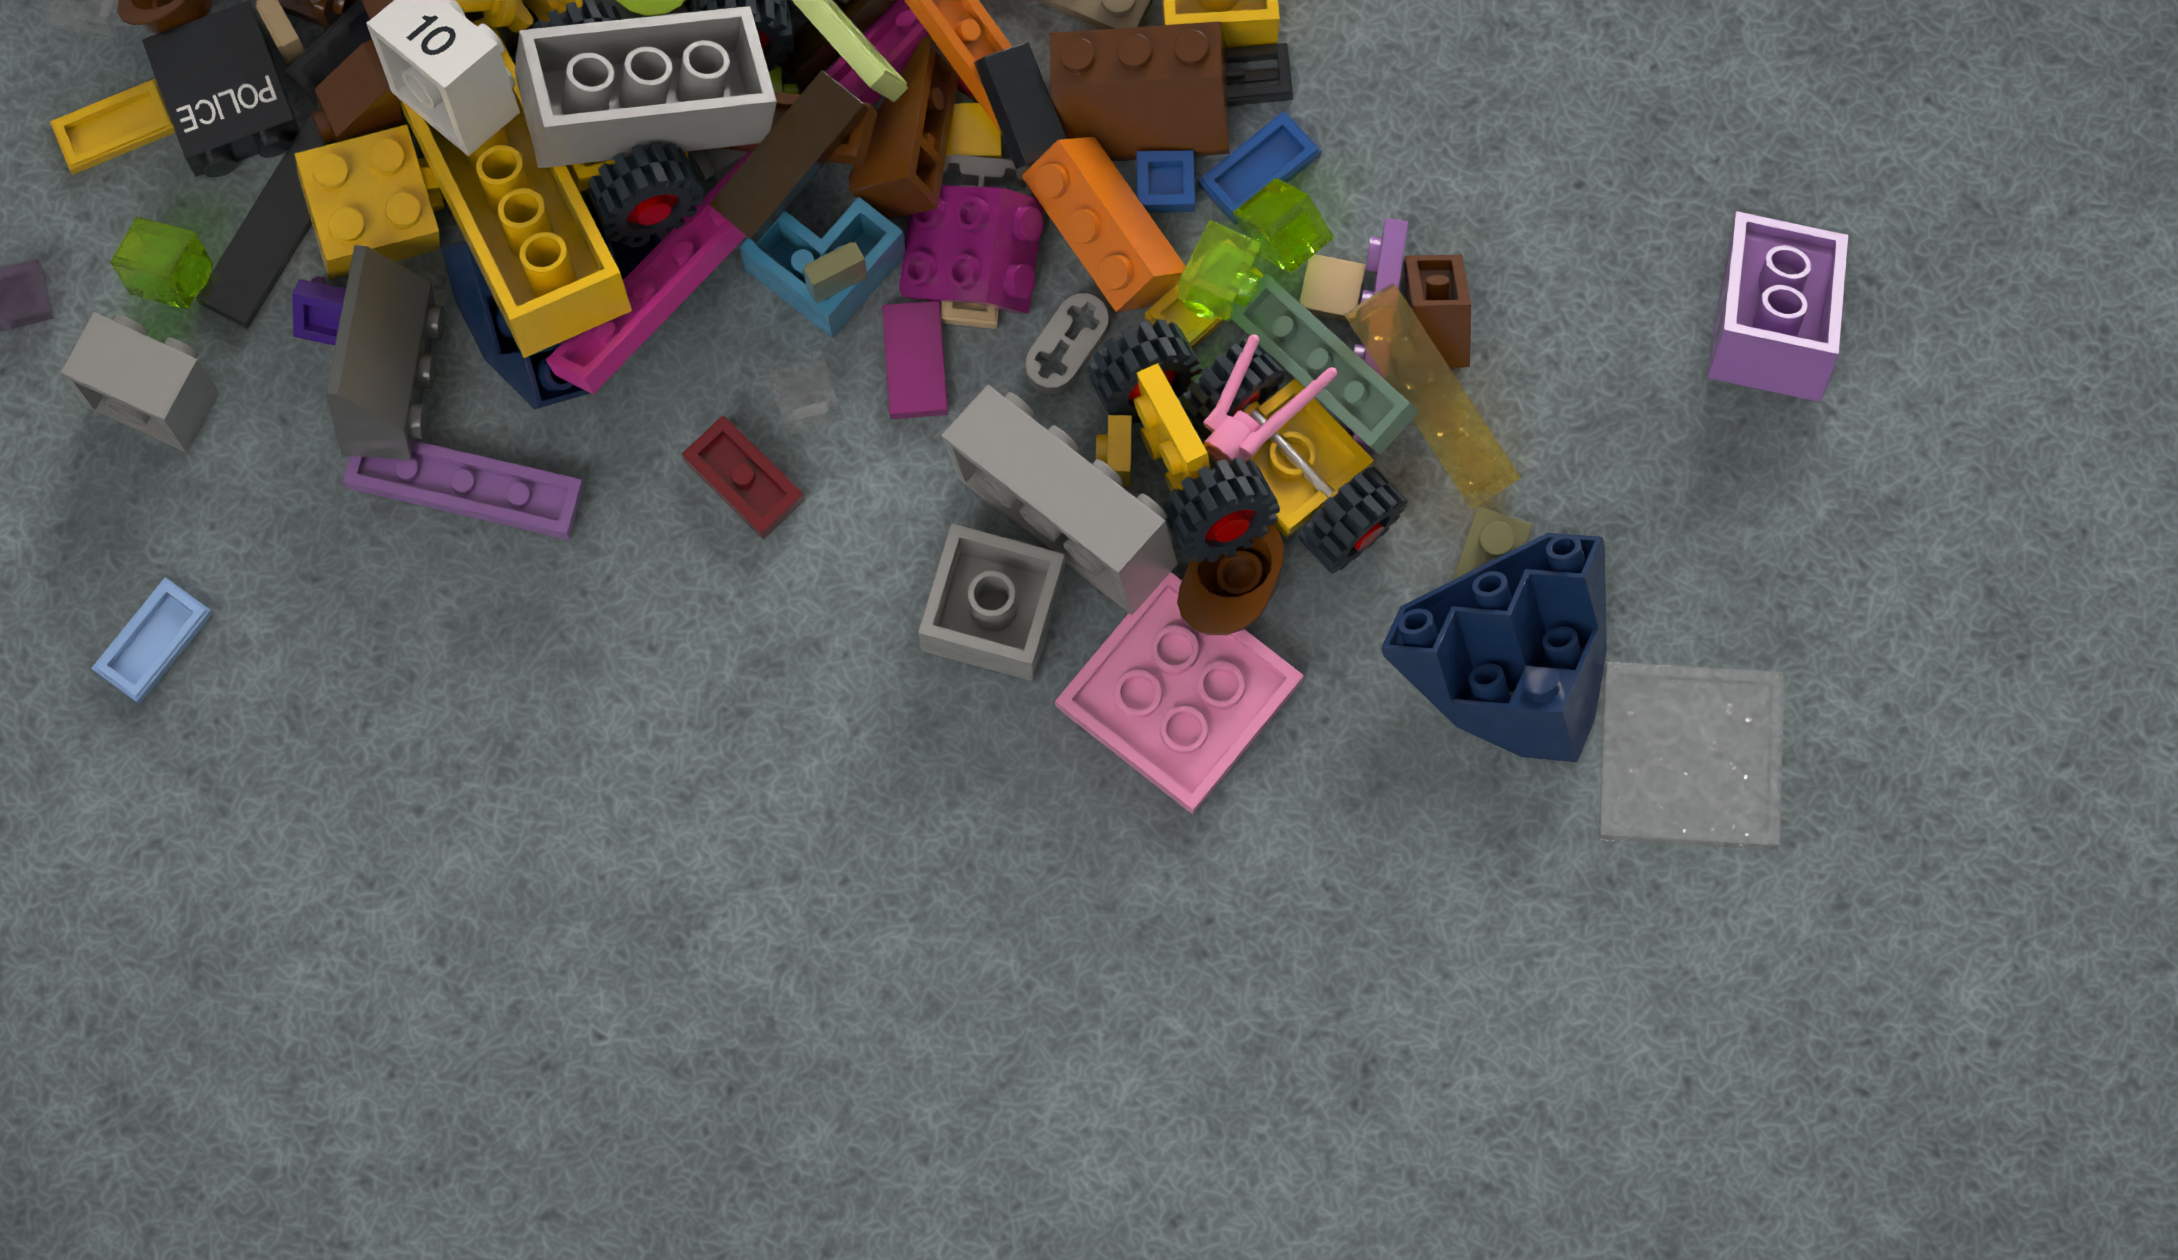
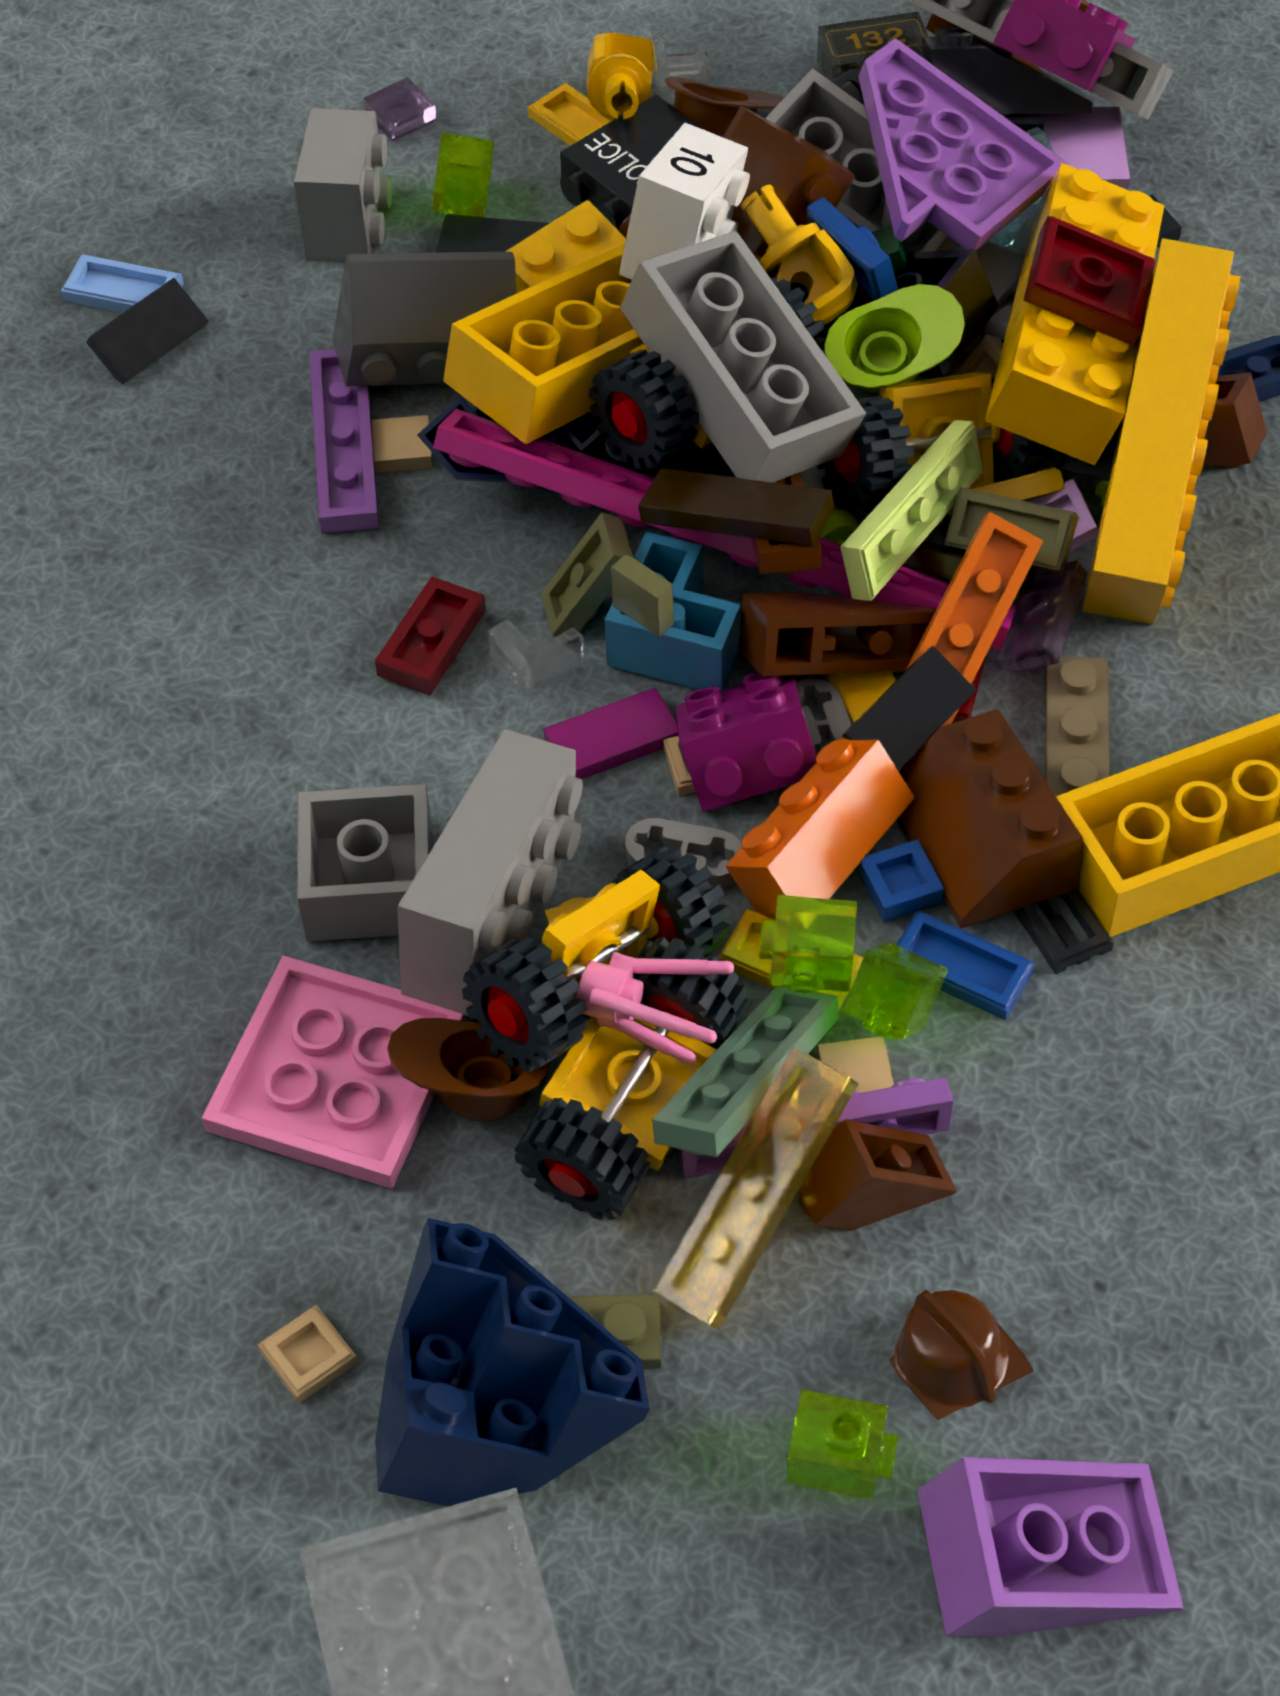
camera: 70 degrees right, 20 degrees down
(97, 72) = (619, 73): none -> yellow piece
(238, 629) = (147, 331): none -> black tile
(488, 430) = (398, 446): none -> tan tile
(754, 317) = (585, 576): none -> olive plate
(1428, 788) = (307, 1354): none -> tan tile
(1598, 310) = (955, 1352): none -> reddish brown piece
(1652, 418) = (840, 1445): none -> clear neon green brick

